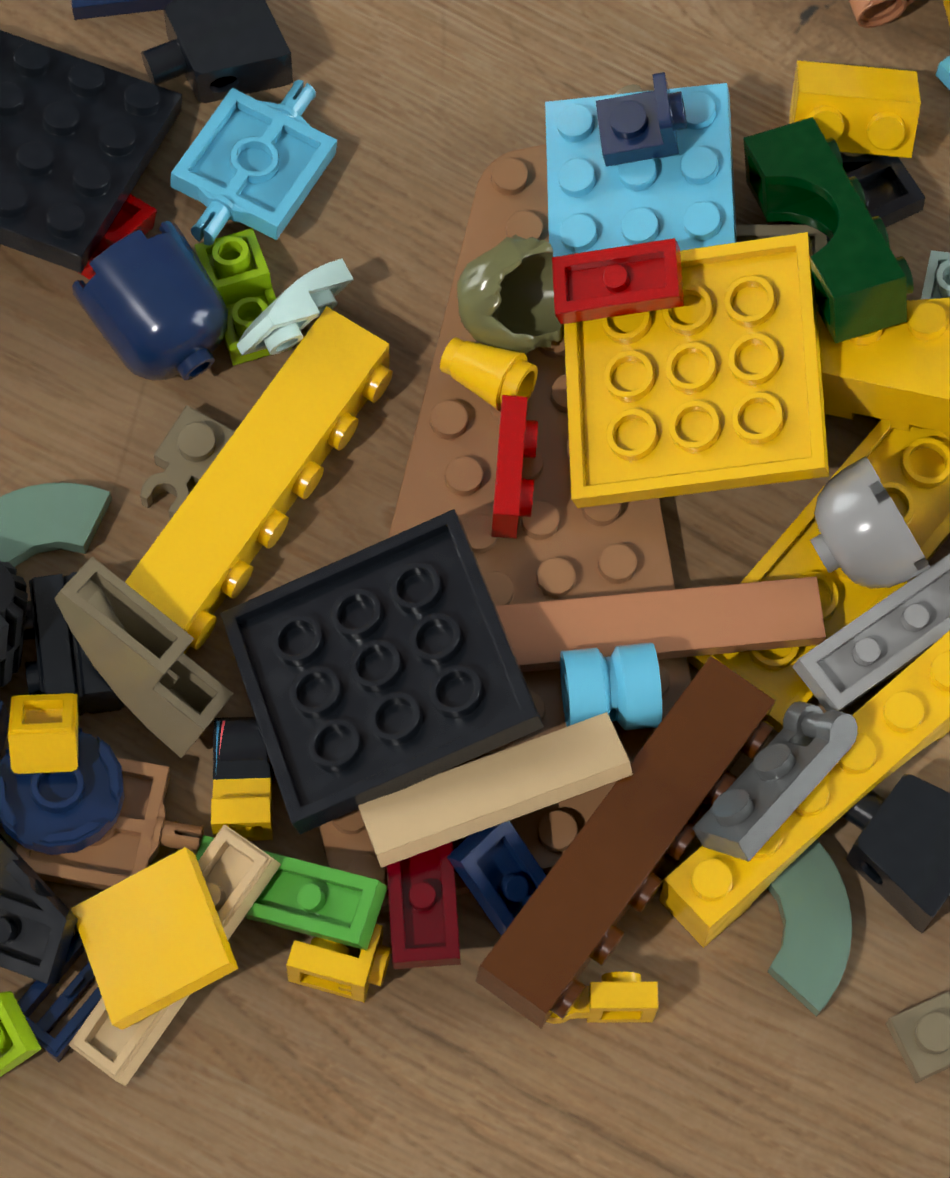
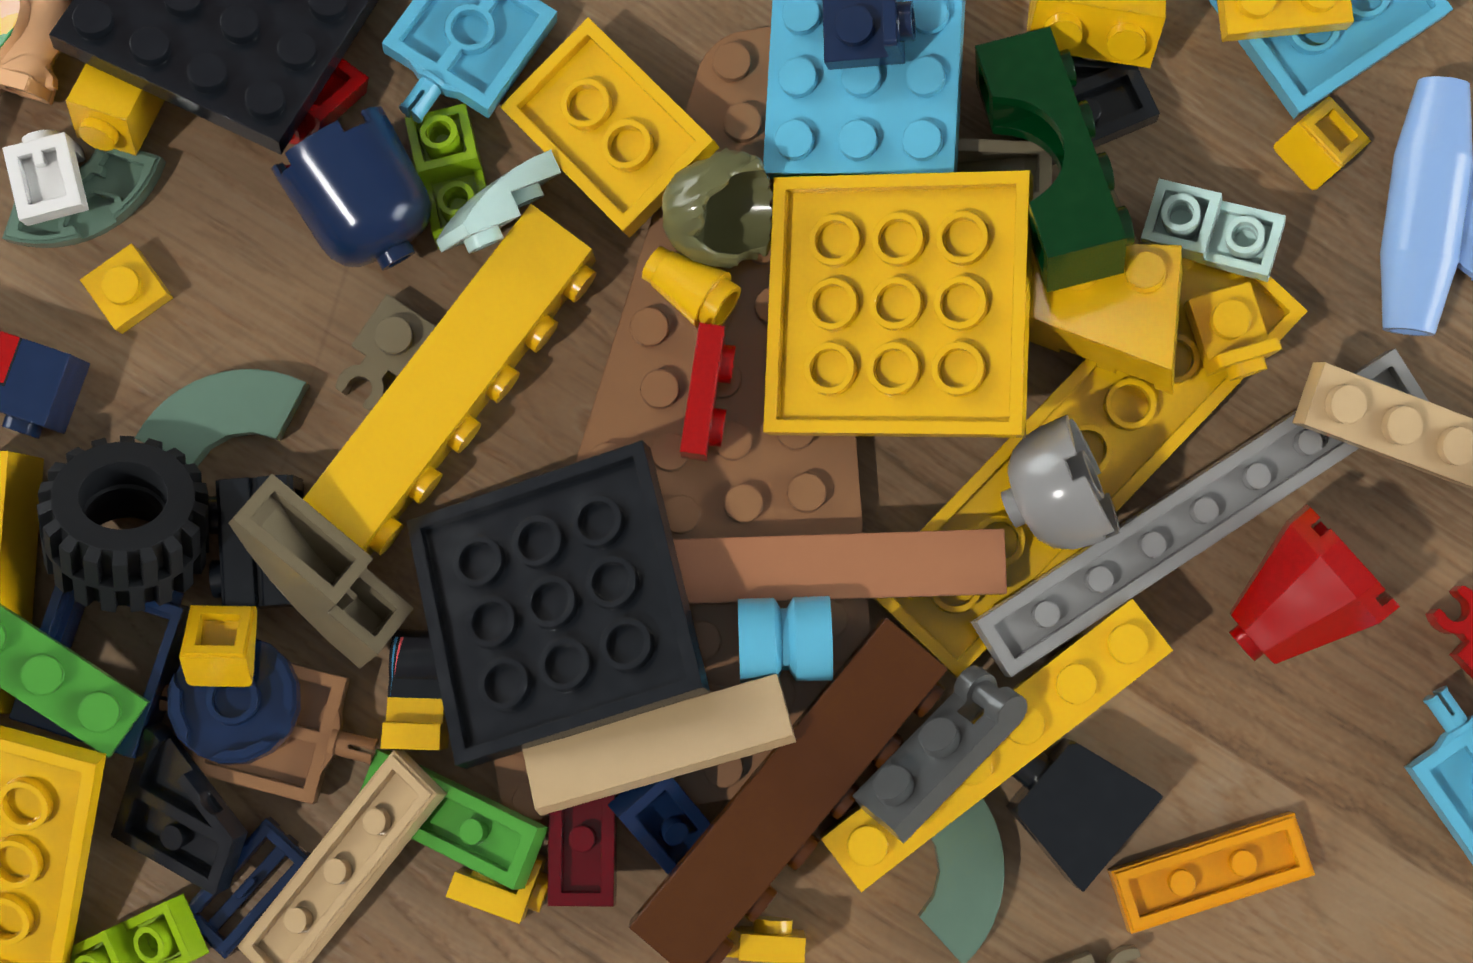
camera: 10 degrees right, 15 degrees up
(154, 938) = (318, 862): yellow tile -> none
(394, 235) = (608, 126): none -> yellow plate
(617, 281) = (828, 206): red plate -> none

